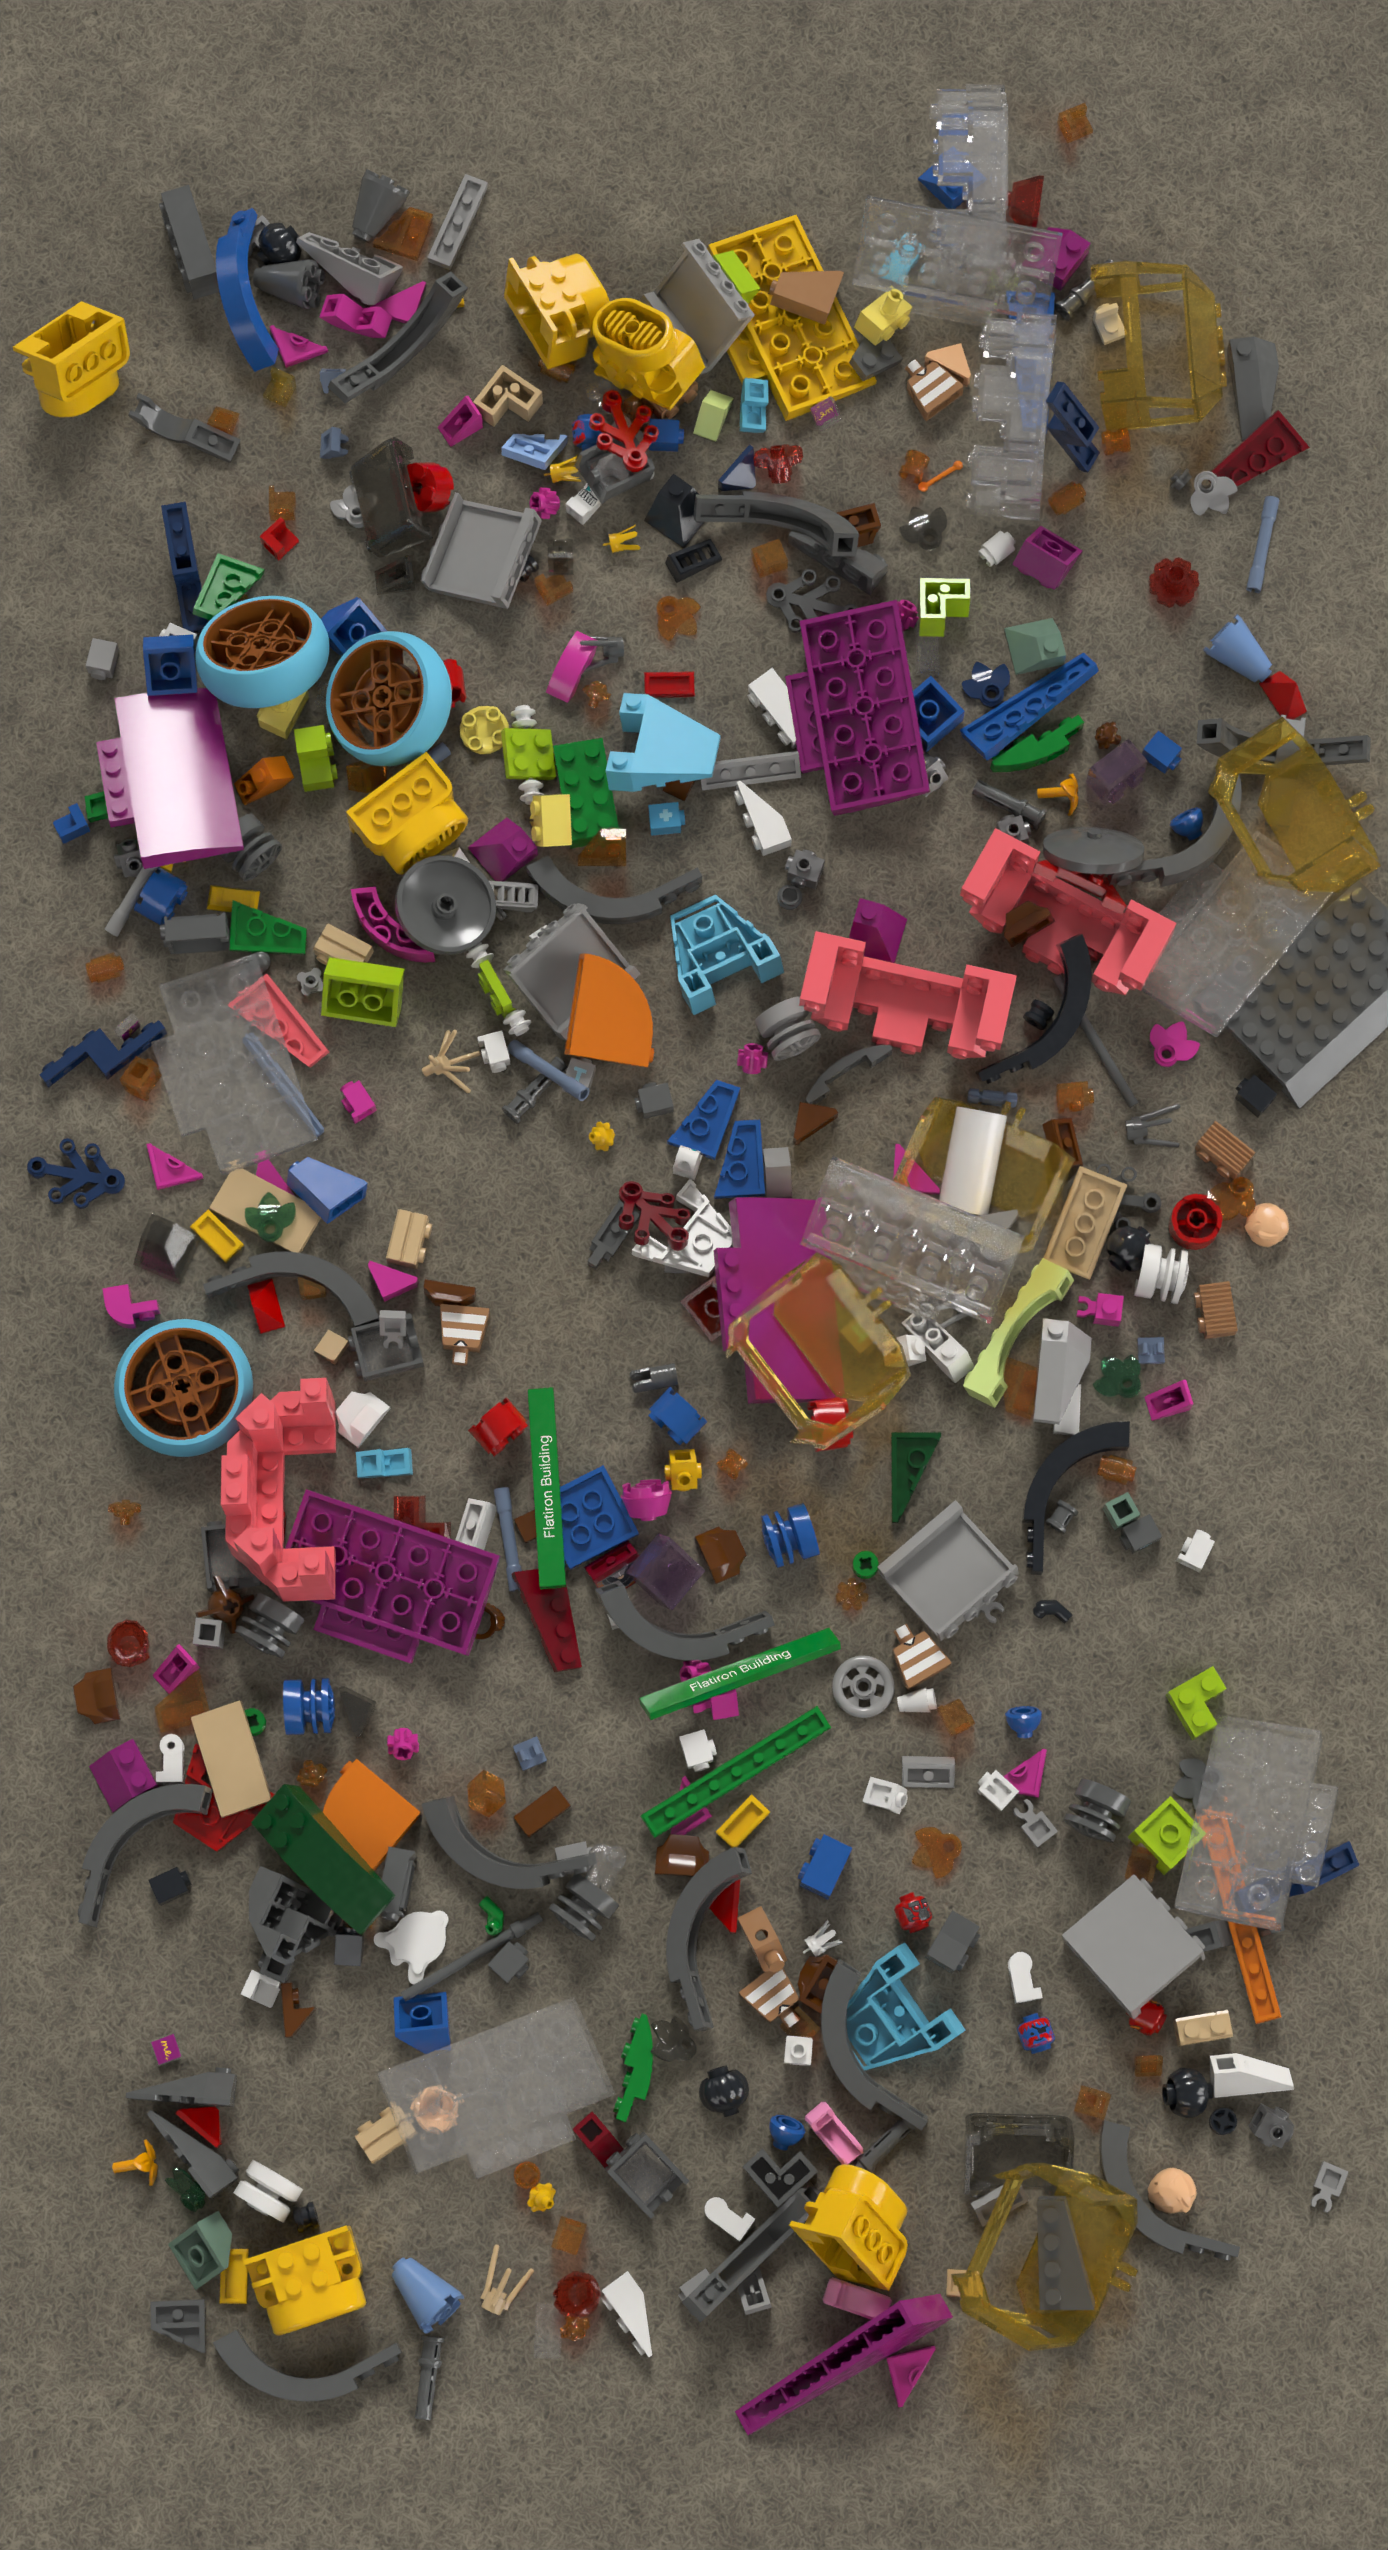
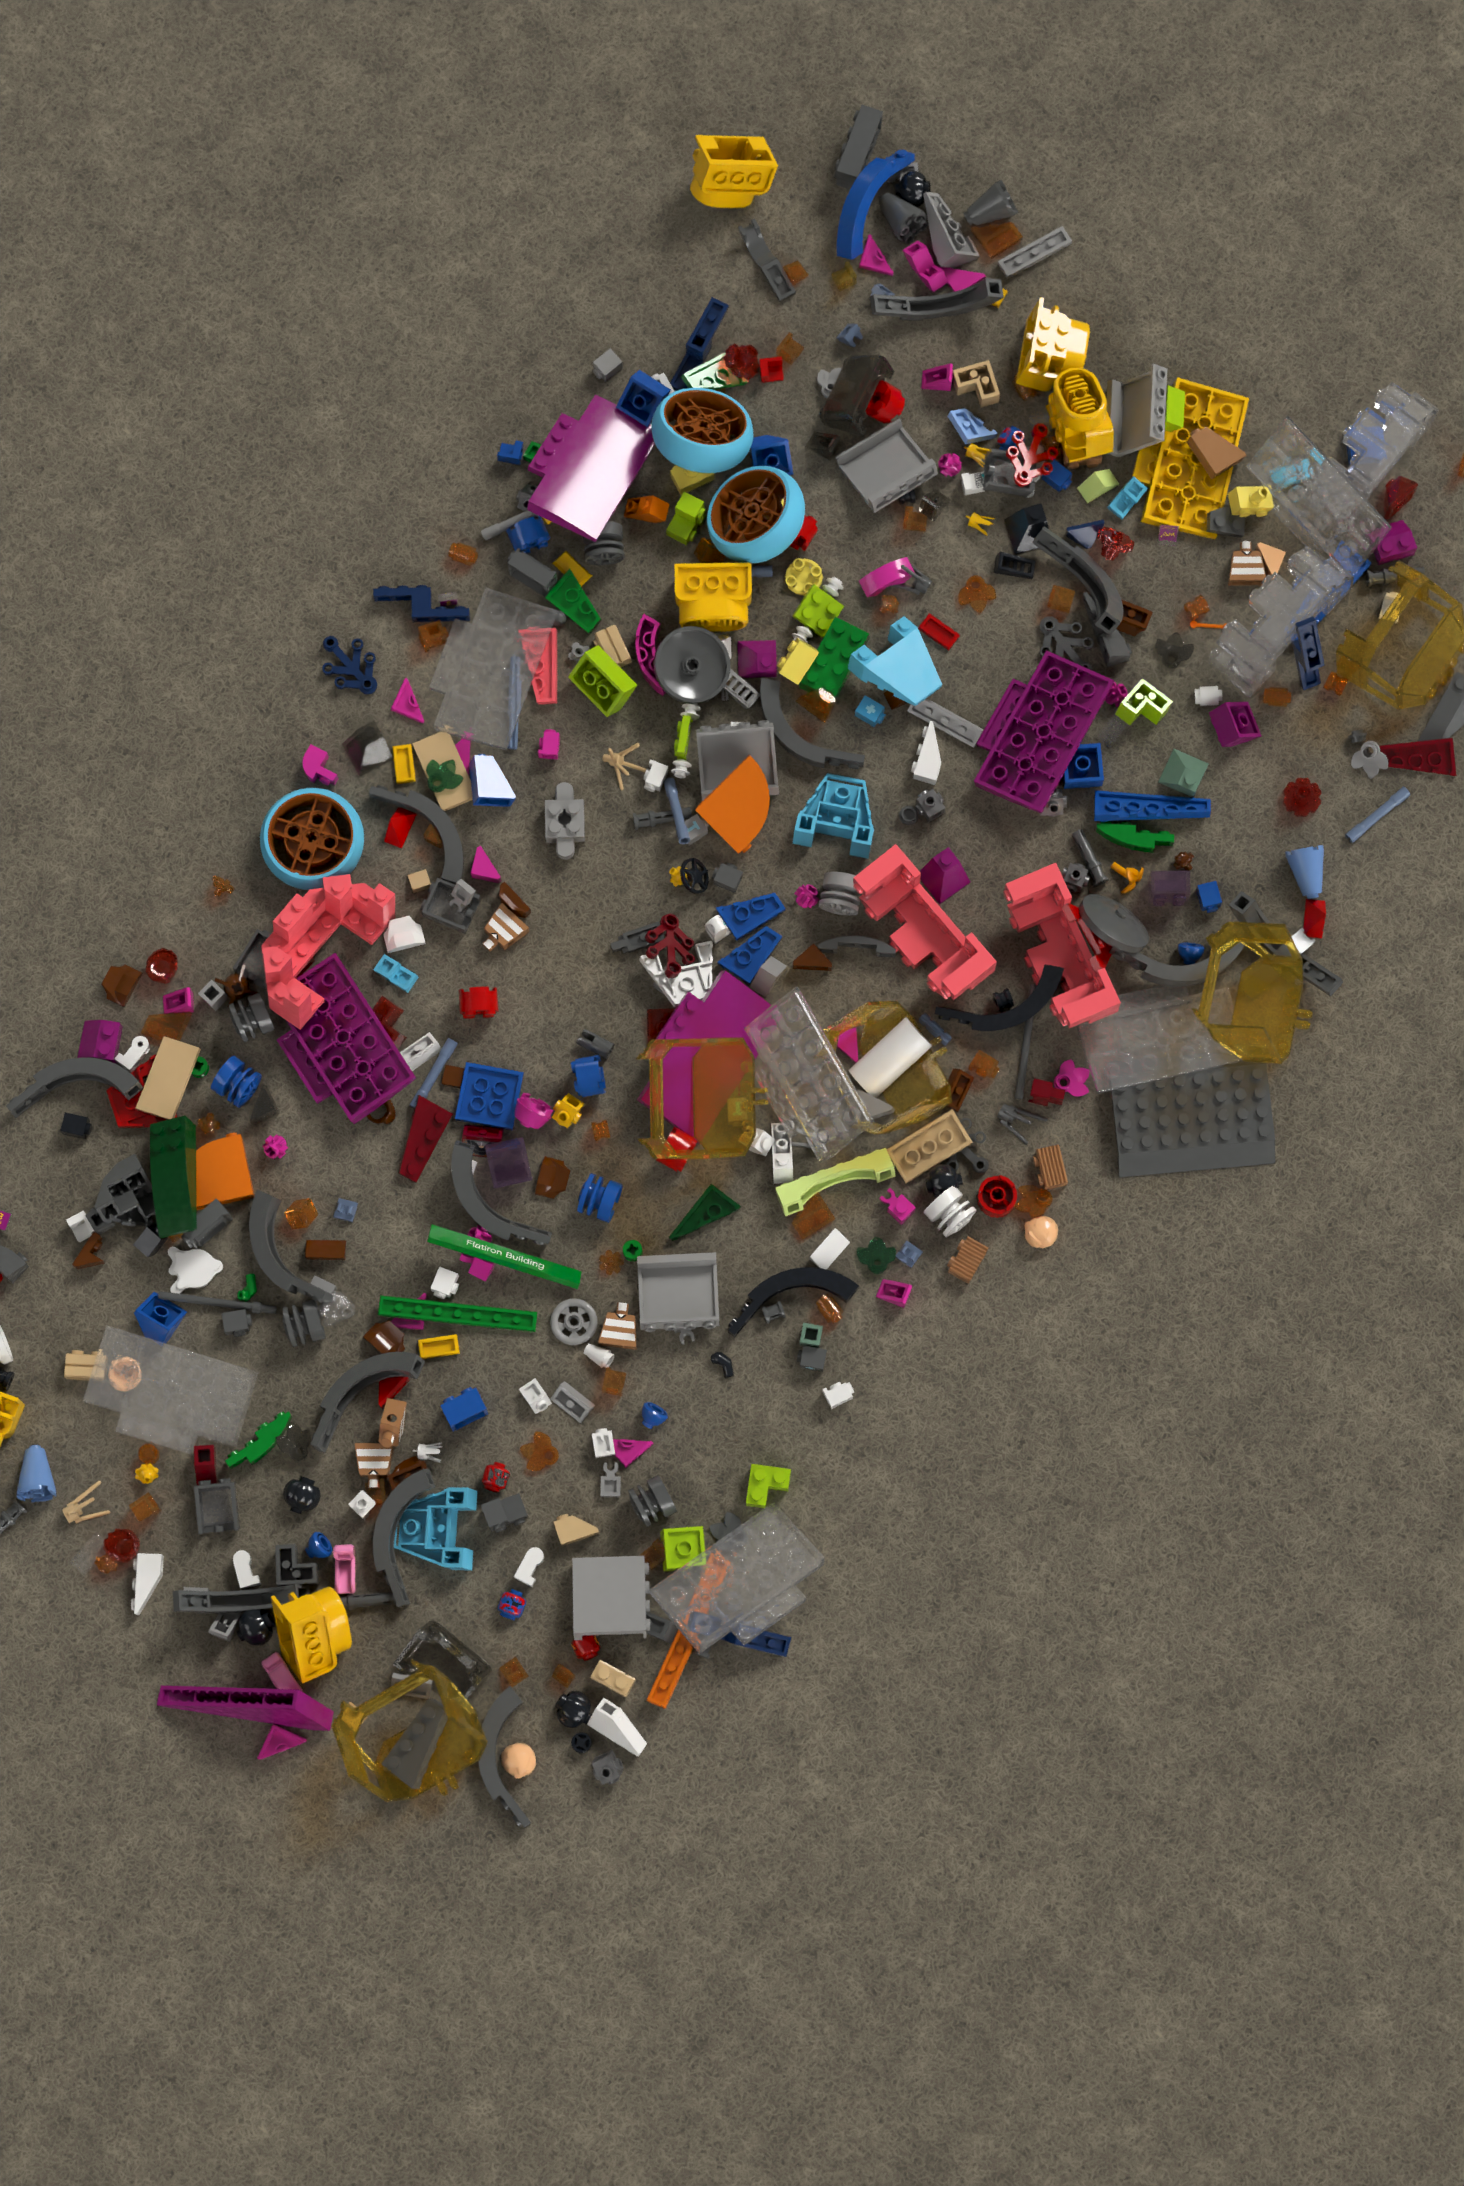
camera: 40 degrees right, 0 degrees up
(242, 550) = (742, 360): none -> clear red plant
(408, 1239) = (514, 850): tan brick -> none
(437, 1168) = (564, 821): none -> light grey brick
(546, 1488) = (478, 1060): green tile -> none
(619, 1124) = (694, 875): none -> black wheel
(772, 695) = (995, 685): white slope -> none
(787, 2270) = (255, 1627): none -> black plant
(986, 680) = (1135, 772): dark blue plate -> none
(1025, 922) = (1036, 936): reddish brown slope -> none
(1036, 1904) = (573, 1529): none -> tan slope
(1061, 1363) = (847, 1218): light grey wedge -> none
(1159, 1077) = (1044, 1092): none -> dark red piece
(1255, 1095) = (1097, 1148): black brick -> none
(1329, 2181) = (616, 1827): light grey plate -> none

